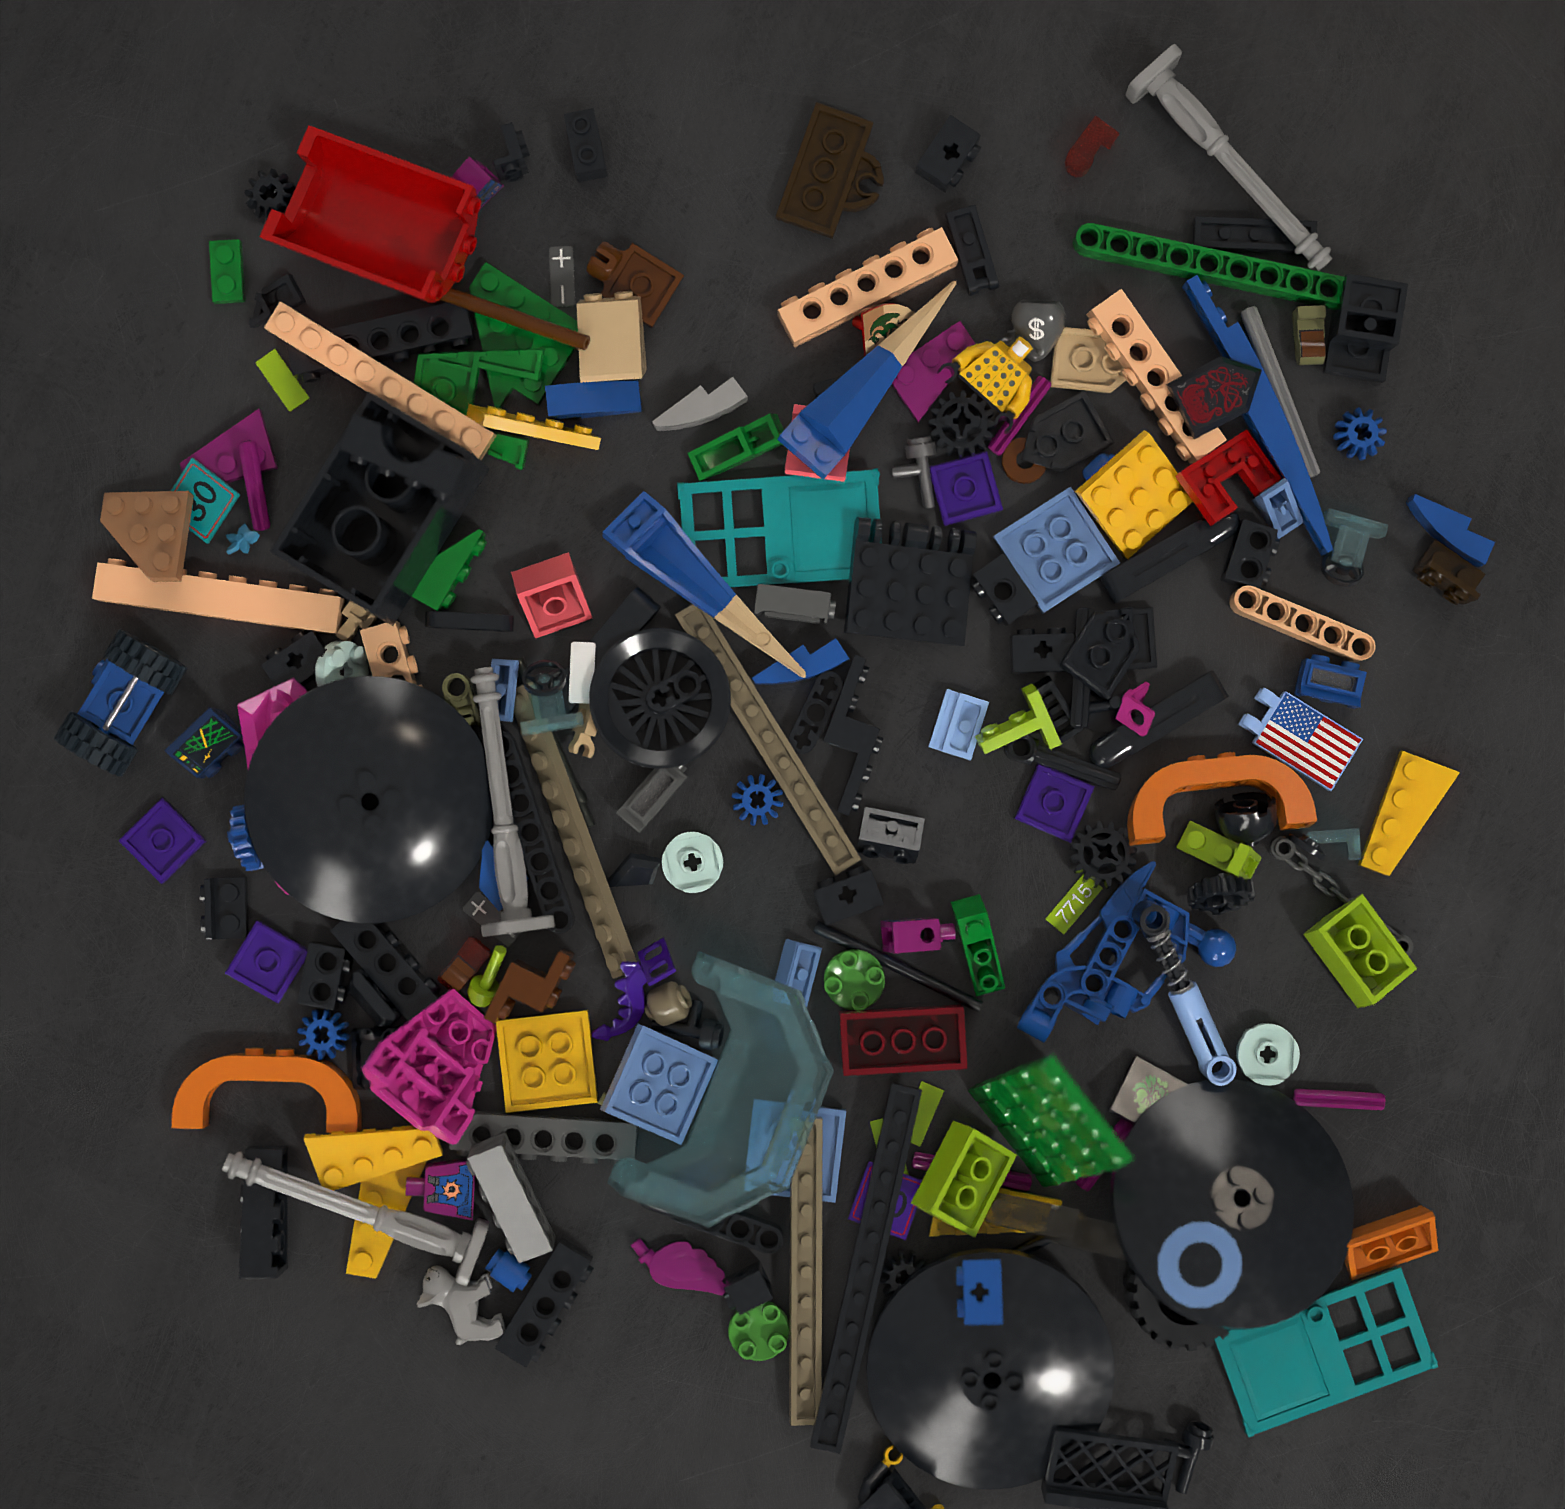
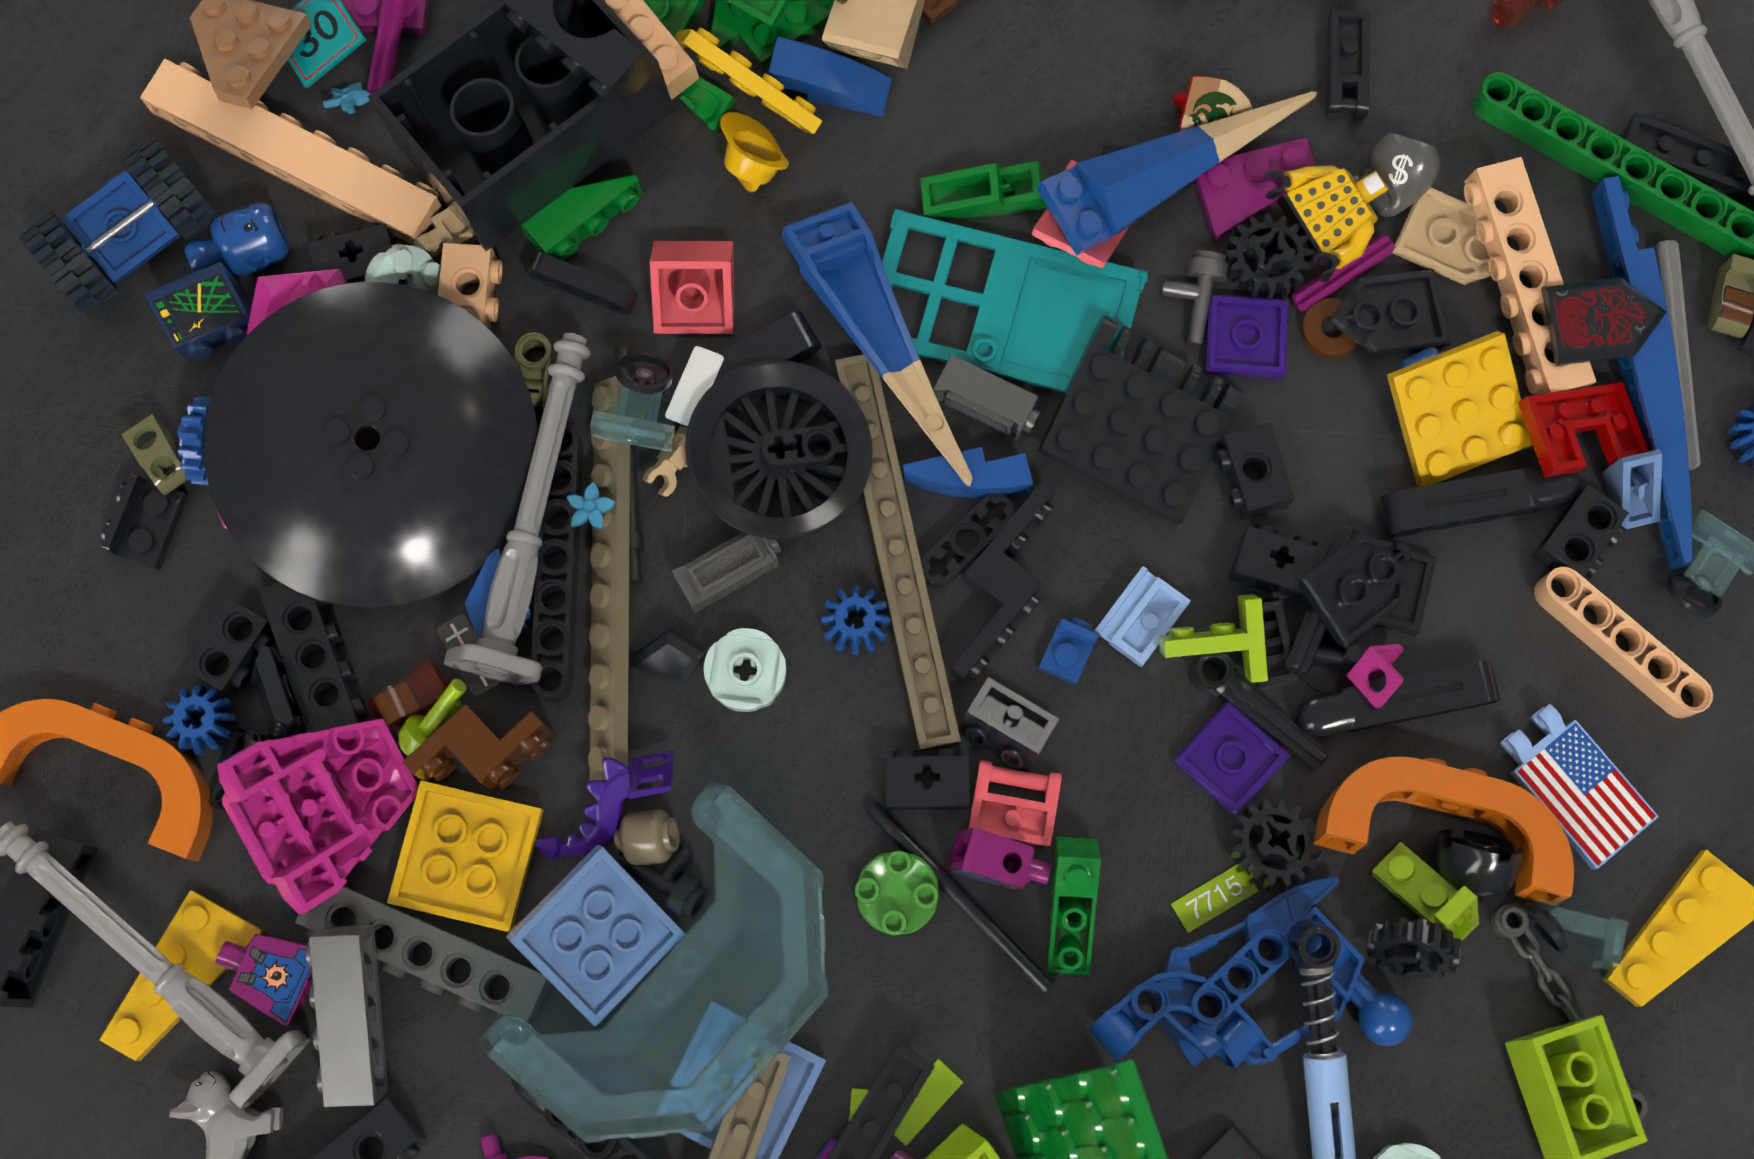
camera: 20 degrees right, 10 degrees down
(162, 840) = (99, 412): dark purple tile -> none
(210, 679) = (242, 240): none -> blue piece
(216, 858) = (157, 456): none -> olive leg
(267, 961) = (166, 605): dark purple tile -> none
(359, 1156) = (179, 889): yellow wing -> none
(506, 686) = (595, 370): medium blue slope -> none
(507, 1270) = (306, 1113): blue brick -> none
(541, 788) = (590, 507): none -> dark azure plant
(556, 476) = (750, 151): none -> yellow piece
(701, 408) = (957, 131): light grey slope -> none
(798, 966) = (834, 850): medium blue slope -> none
(802, 329) = (1153, 80): light nougat brick -> none
(903, 1040) = (933, 991): dark red brick -> none
(914, 767) = (1068, 650): none -> blue bracket
(914, 899) = (1015, 817): none -> coral plate
(1056, 549) = (1338, 445): medium blue plate -> none
(1330, 682) = (1639, 727): blue window -> none

